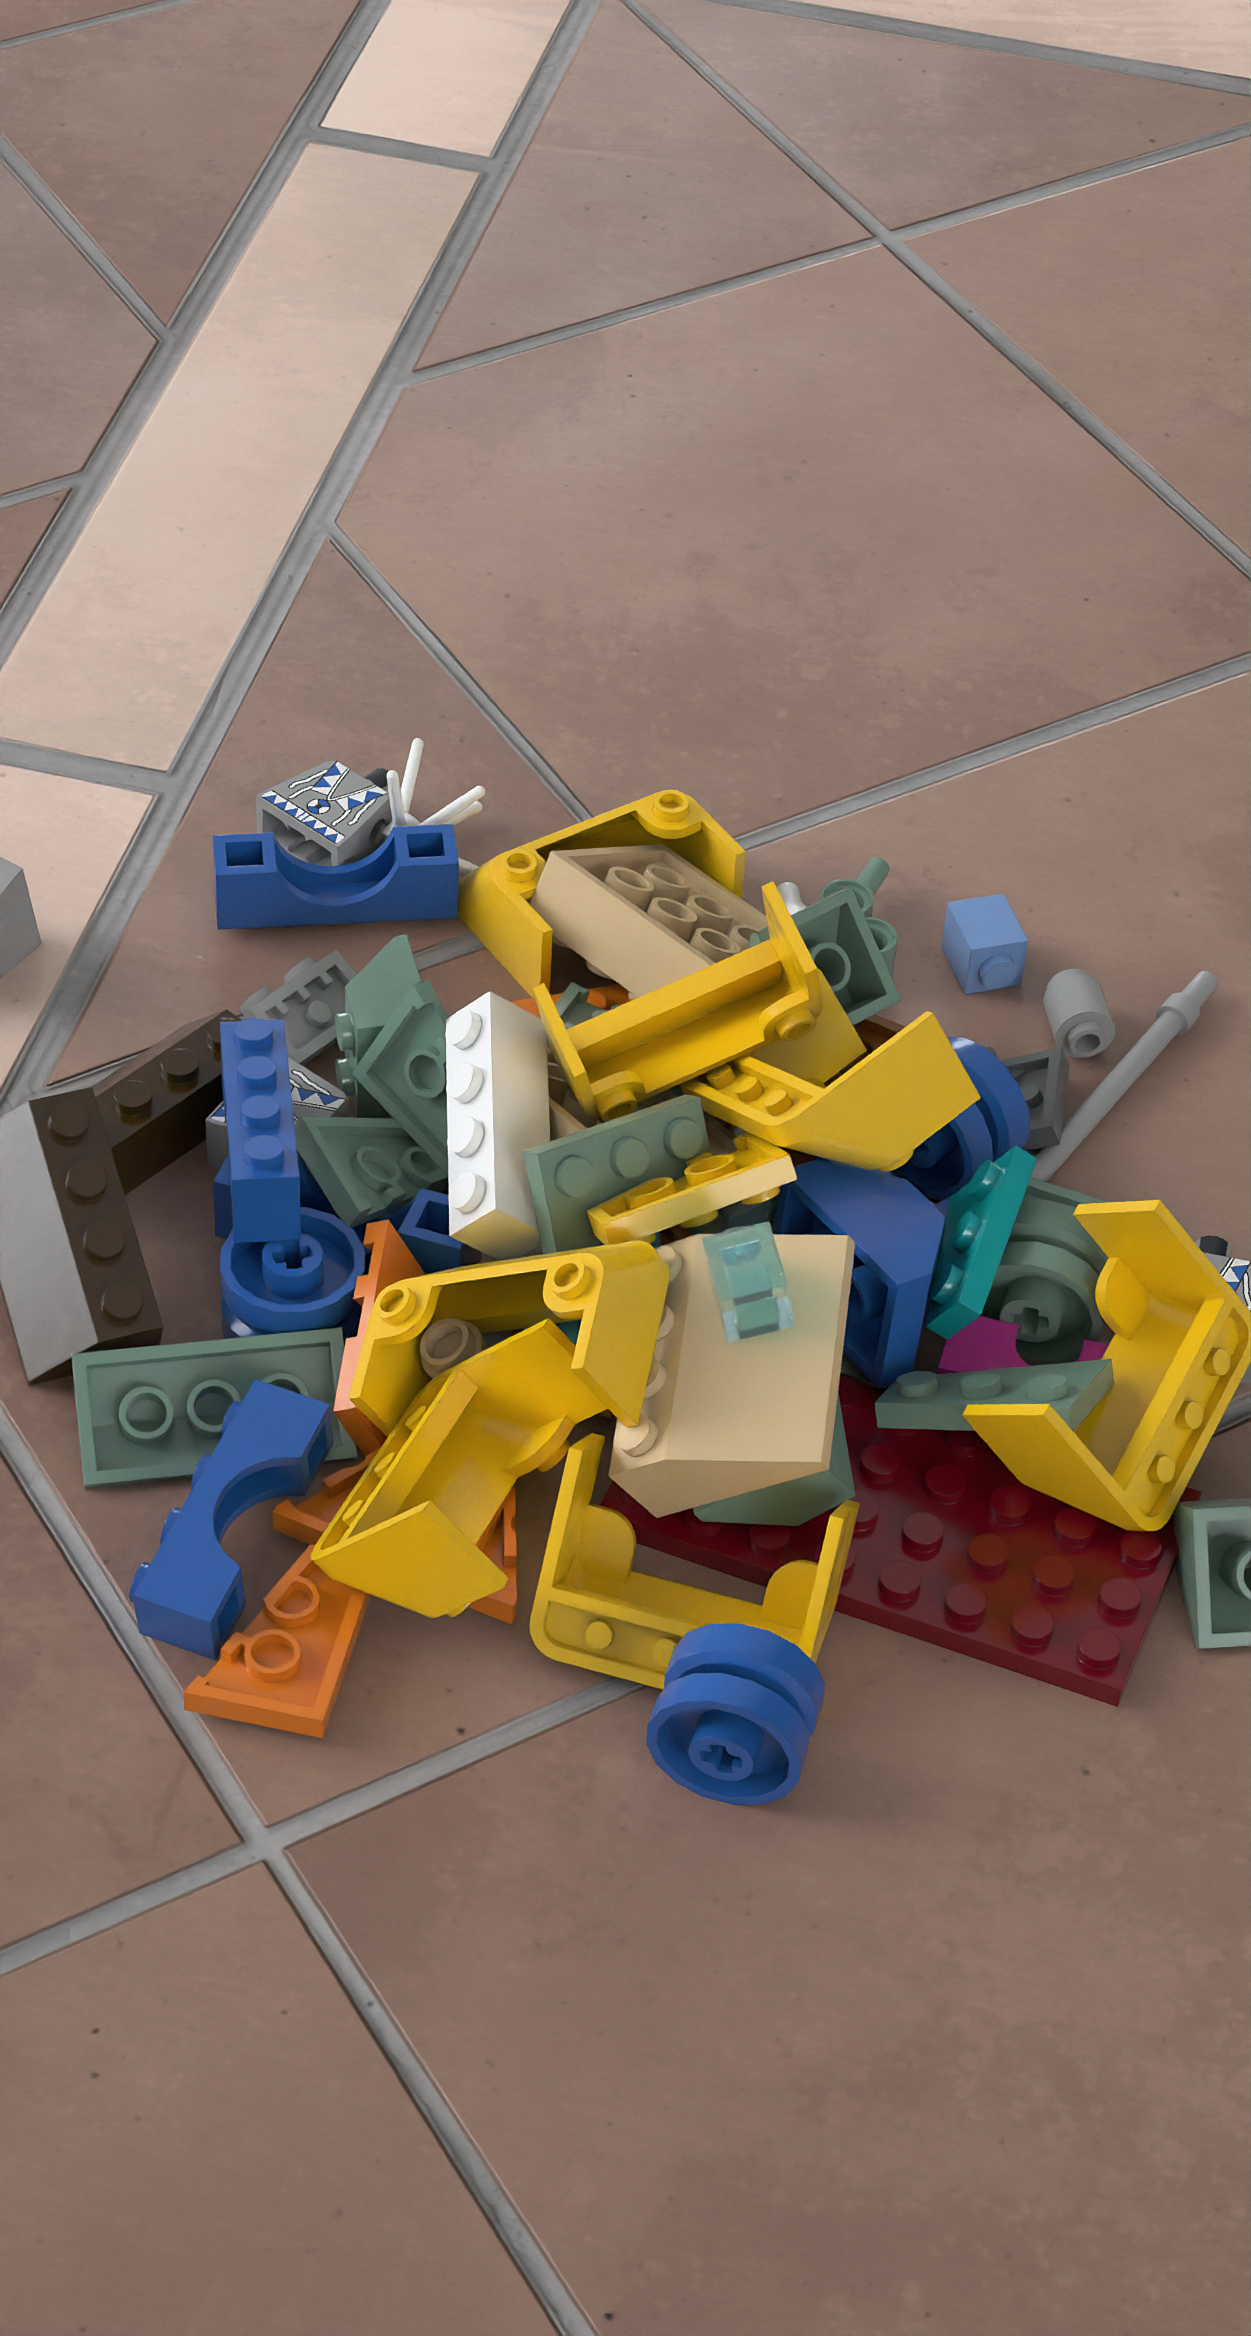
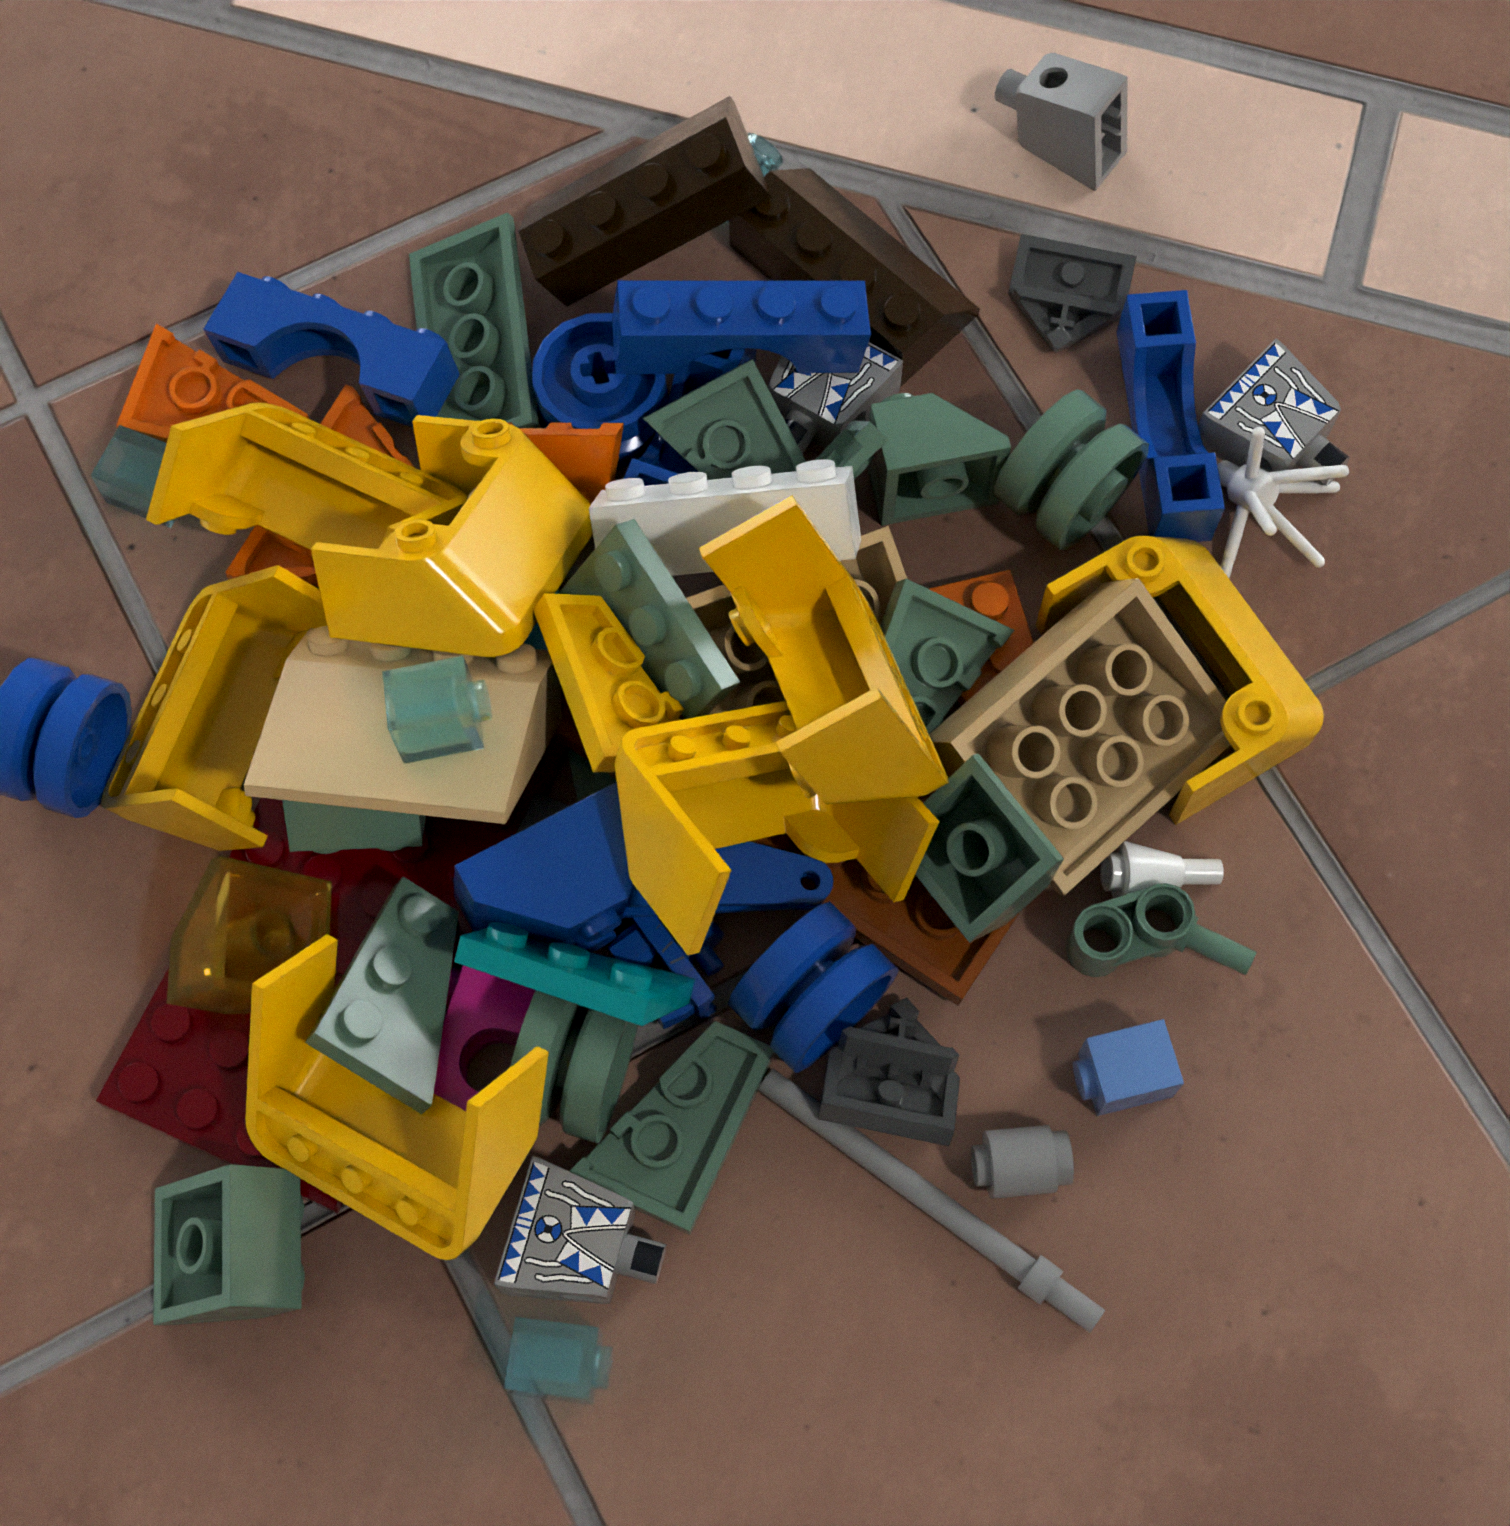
camera: 95 degrees right, 25 degrees up
(168, 960) = (1069, 288): none -> dark grey slope
(306, 1003) = (977, 386): light grey bracket -> none
(387, 1693) = (130, 471): none -> clear light blue brick
(409, 899) = (1070, 469): none -> sand green wheel
(968, 1532) = (241, 928): none -> clear yellow slope

